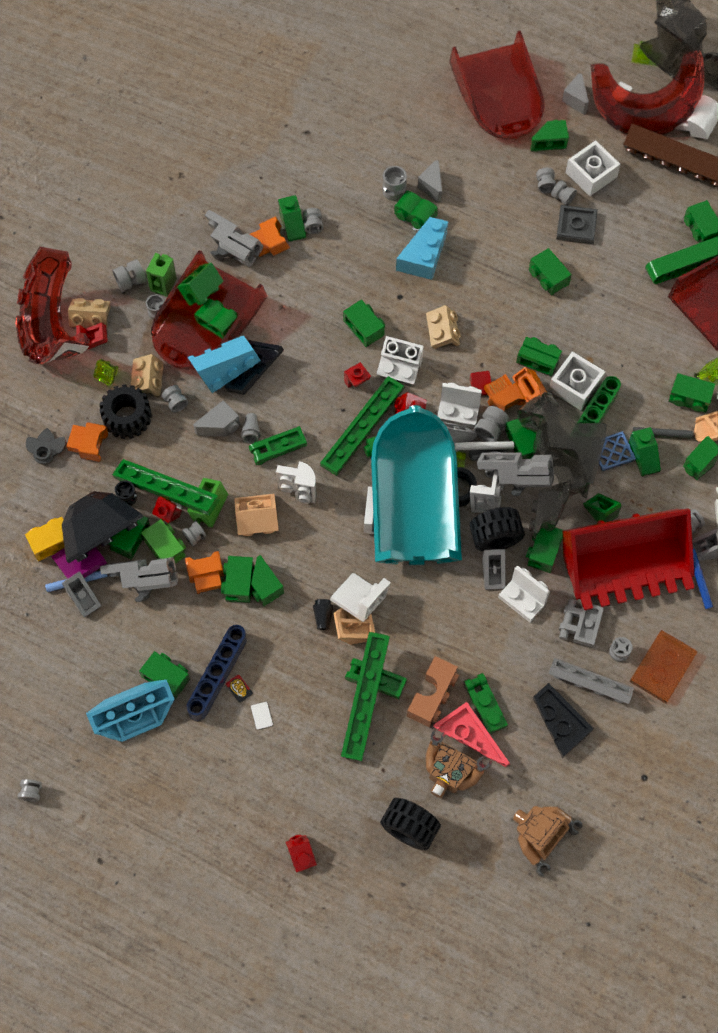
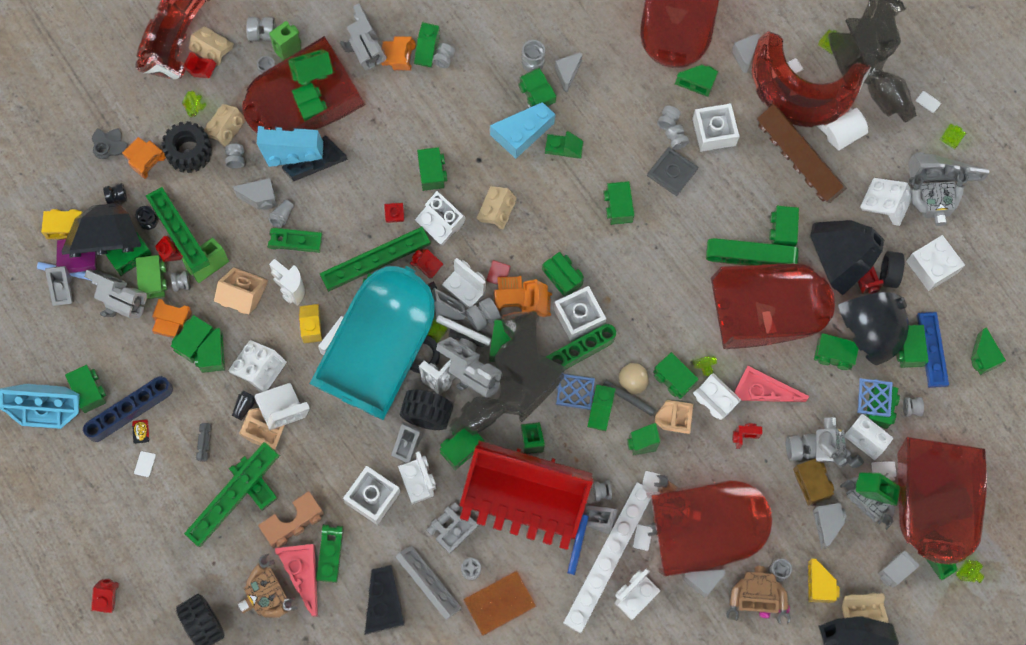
camera: 25 degrees right, 5 degrees up
(82, 486) = (115, 193): none -> black wheel
(306, 666) = (203, 442): none -> dark grey axle
(313, 571) = (258, 365): none -> white bracket
(339, 510) = (310, 323): none -> yellow slope
(472, 246) = (564, 146): none -> green slope
(493, 630) = (371, 495): none -> white brick
(656, 413) = (634, 378): none -> tan hair

